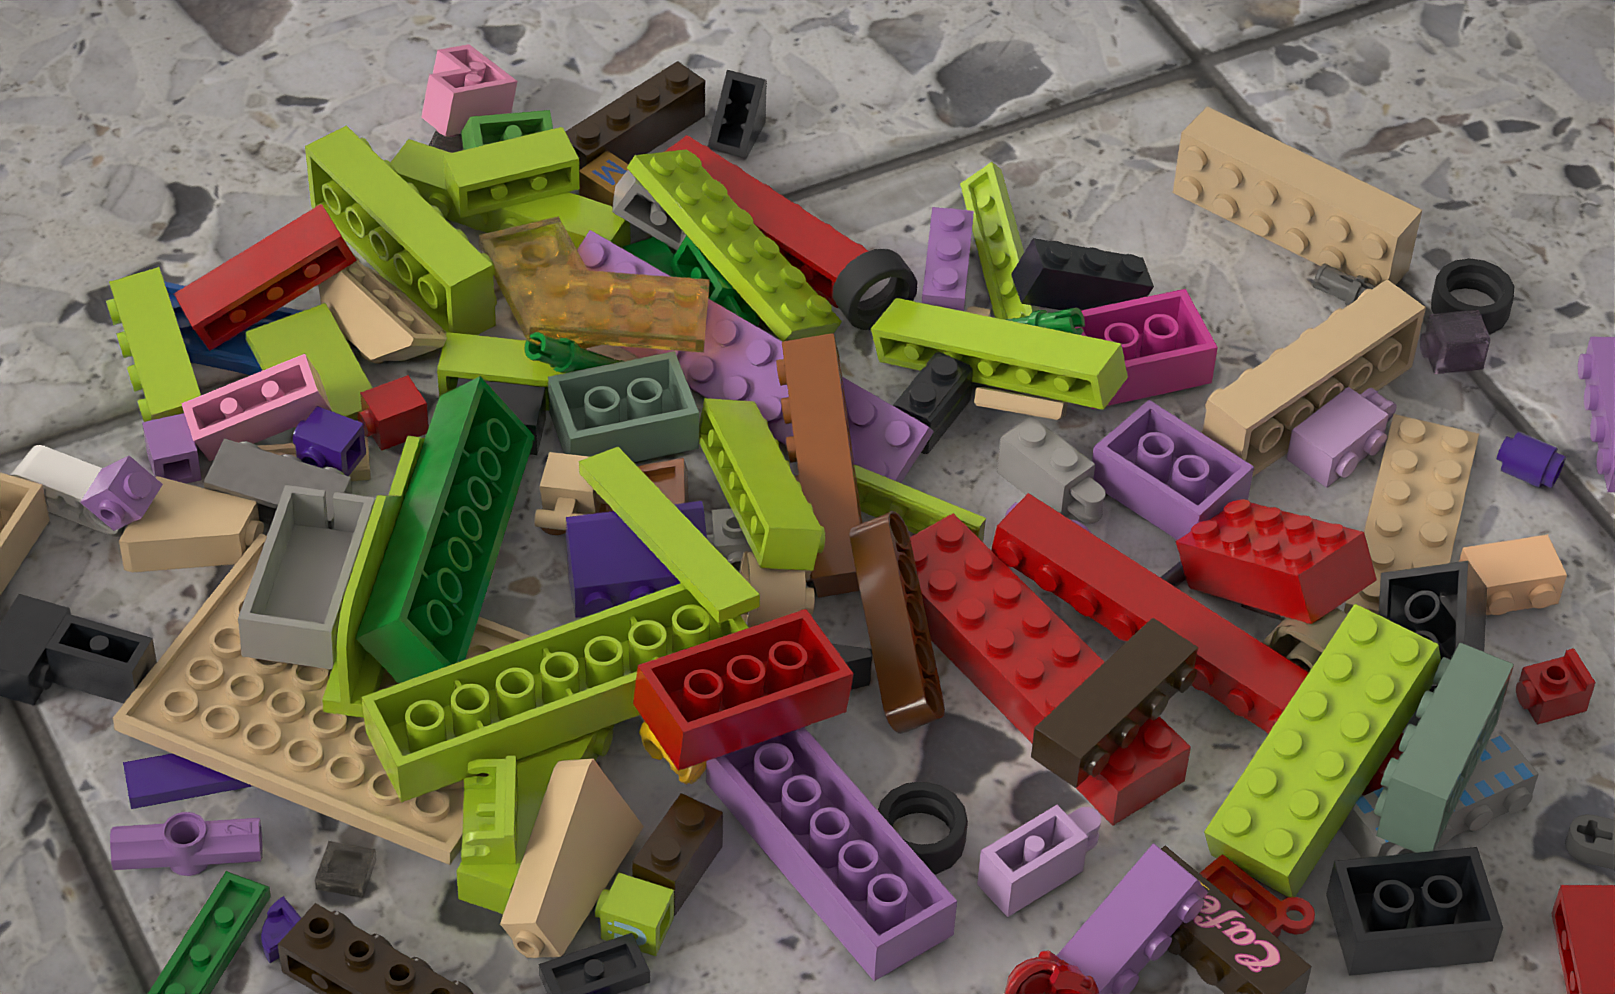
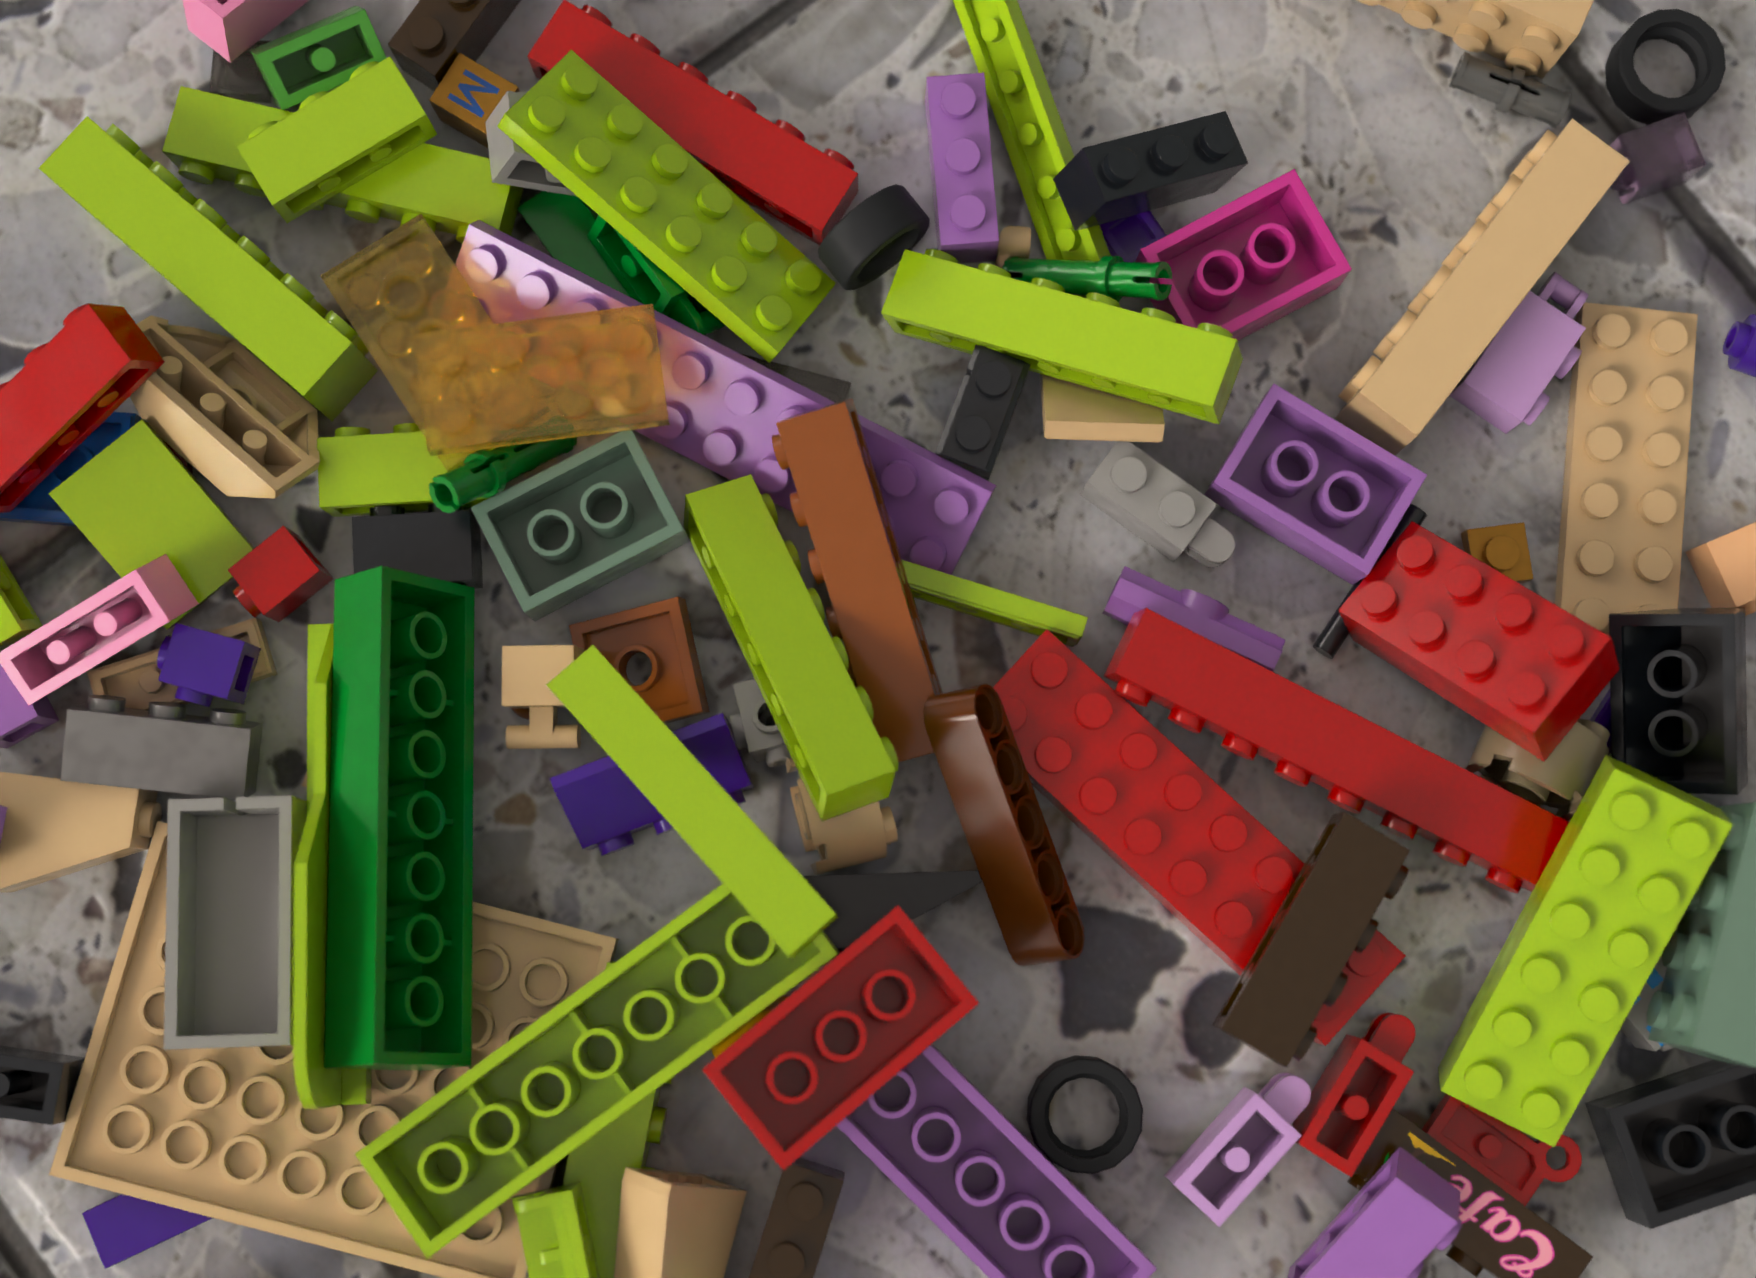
camera: 10 degrees left, 35 degrees up
(1130, 833) = (1357, 1093): none -> red brick

